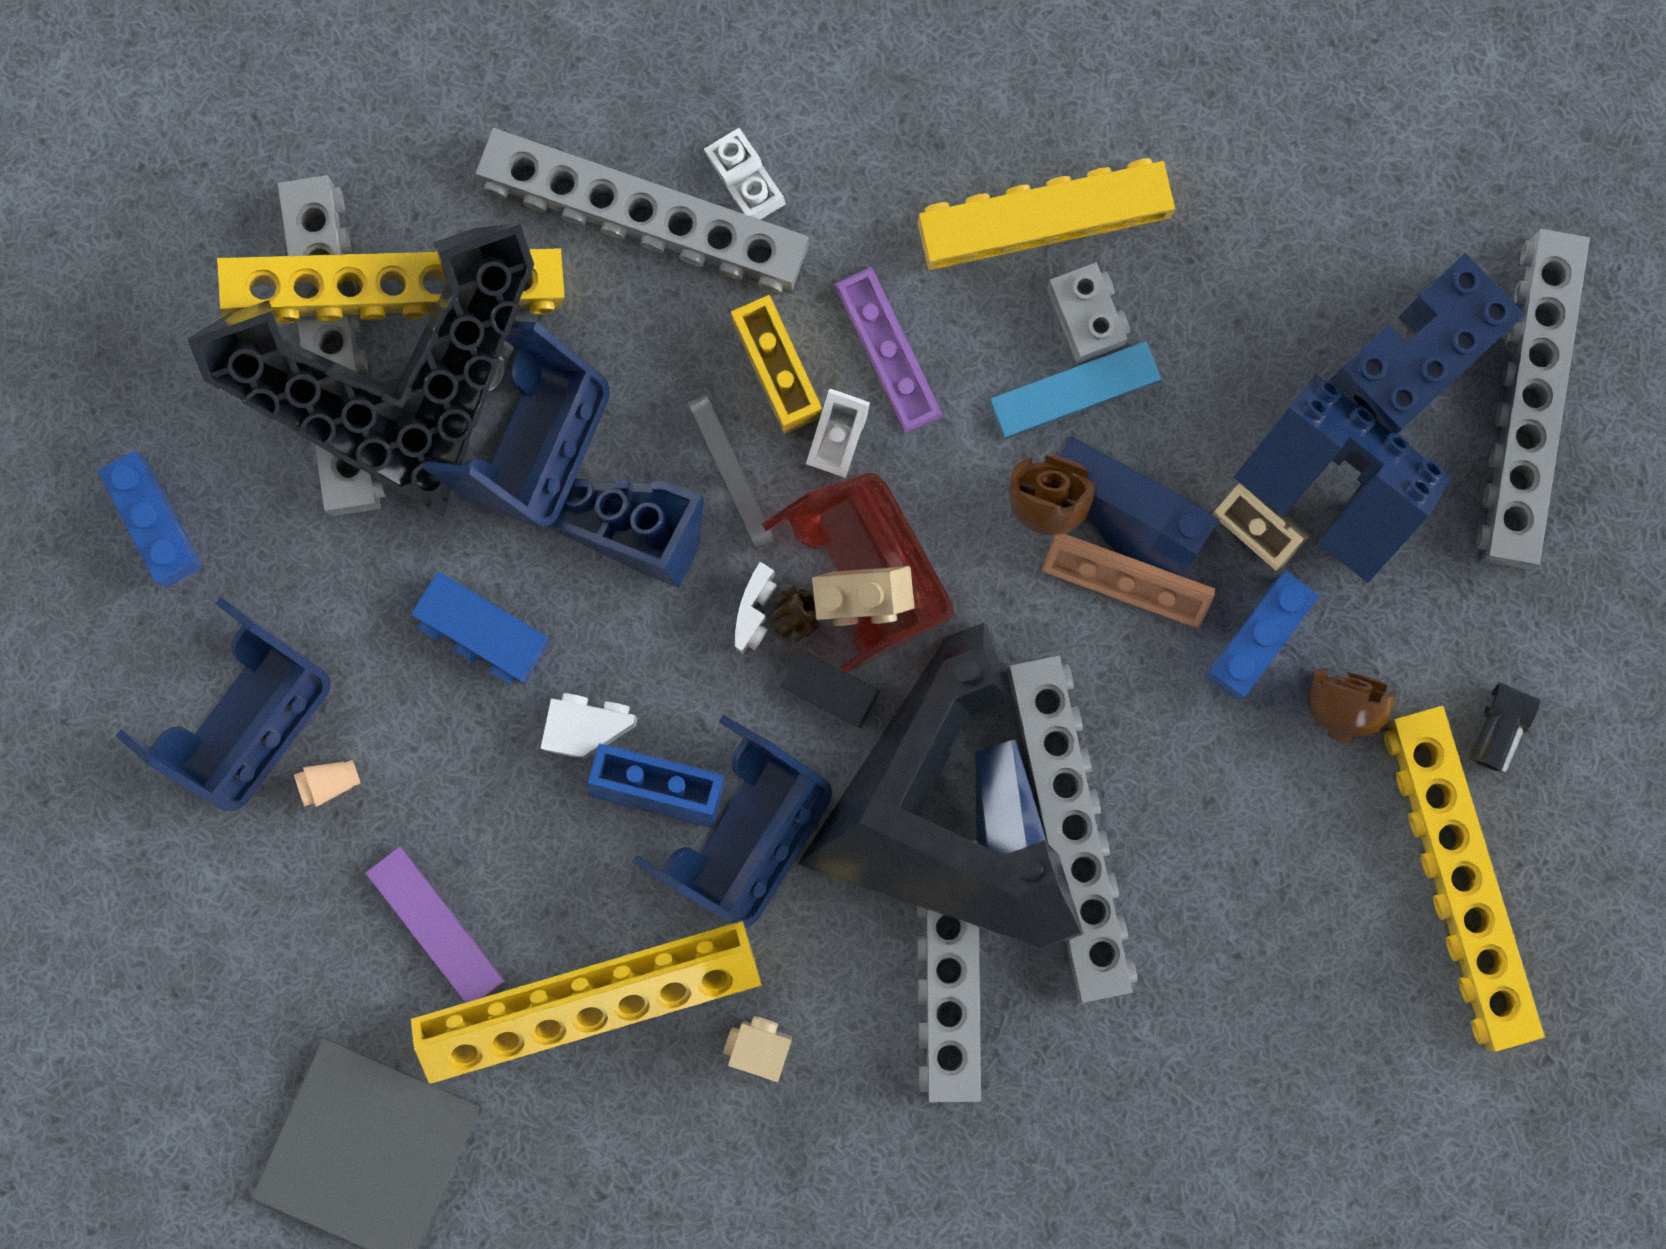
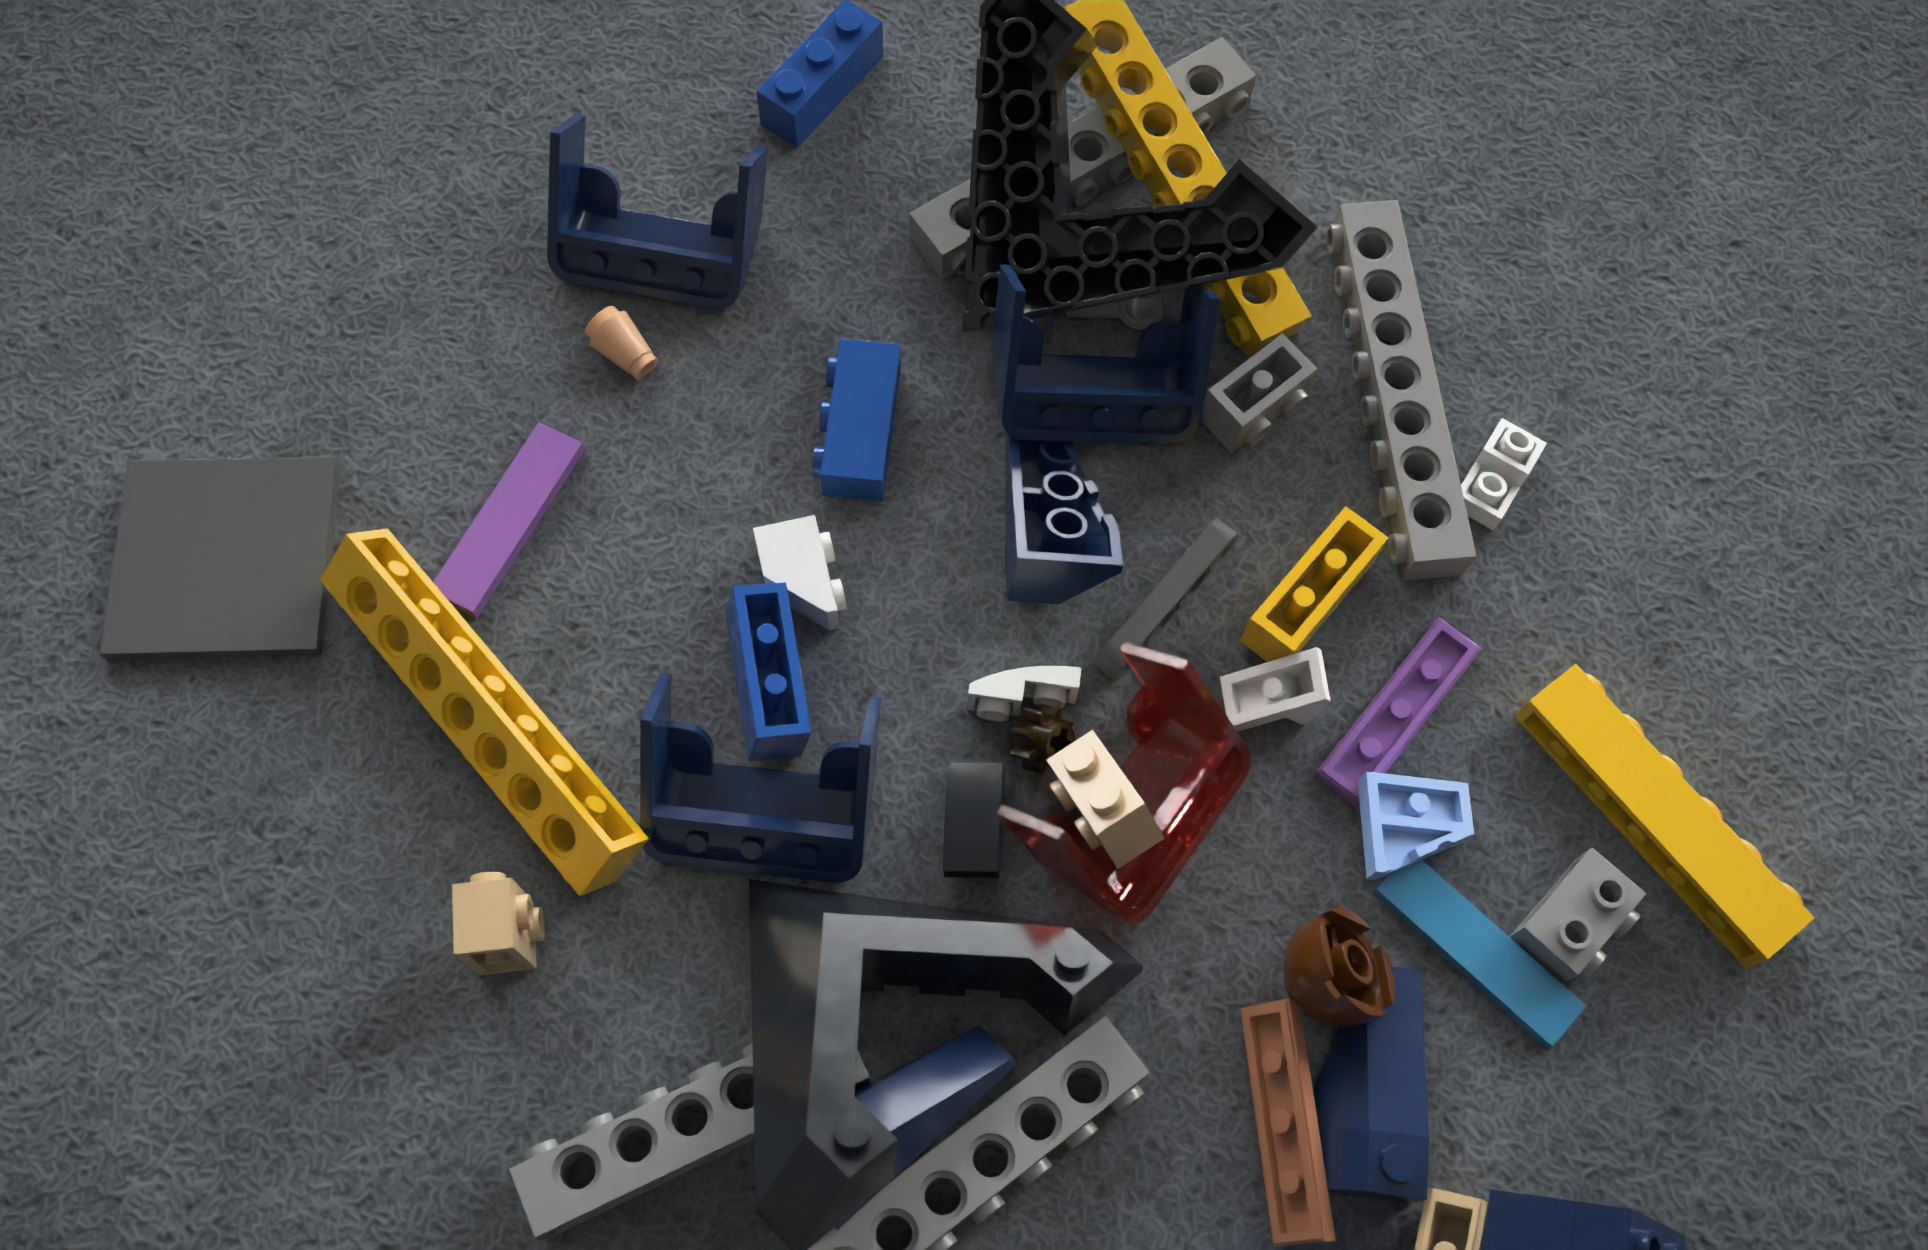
camera: 65 degrees right, 15 degrees down
(604, 323) = (1257, 393): none -> light grey brick
(971, 388) = (1410, 819): none -> light blue wing

